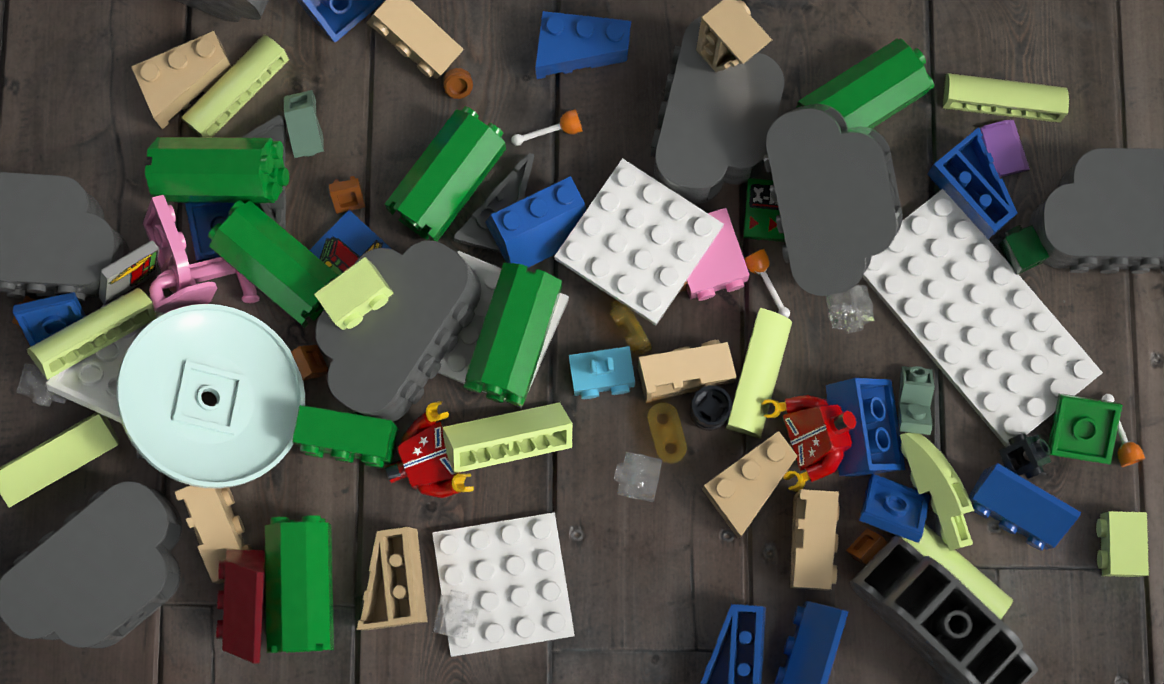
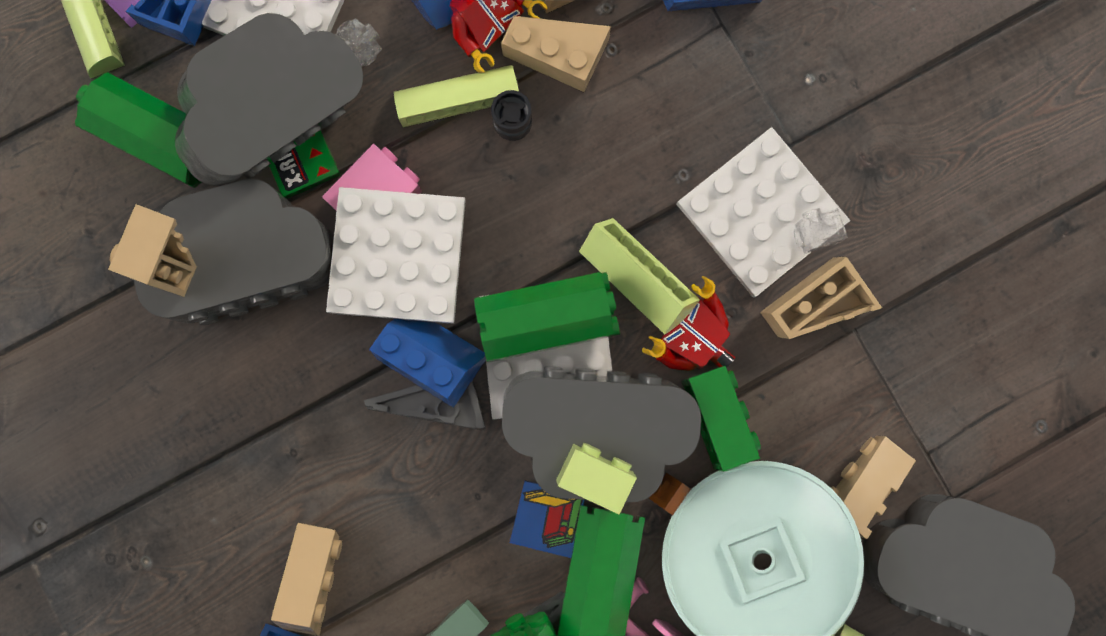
camera: 120 degrees left, 5 degrees up
(241, 603) = (920, 420): dark red slope -> none
(299, 585) = (874, 381): green brick -> none
(346, 195) = (496, 552): dark orange tile -> none
(447, 174) = (426, 467): green brick -> none
(457, 83) = (333, 511): dark orange tile -> none
(568, 123) = (316, 386): hinge -> none
(580, 42) = (232, 418): blue wedge -> none
(602, 372) = (532, 228): medium azure brick -> none
(636, 336) = (484, 214): clear yellow plate -> none
(638, 476) = (606, 144): clear brick -> none
(667, 433) = (550, 142): clear yellow plate -> none
(685, 370) = (490, 155): tan wedge -> none
(758, 264) = (357, 145): hinge -> none

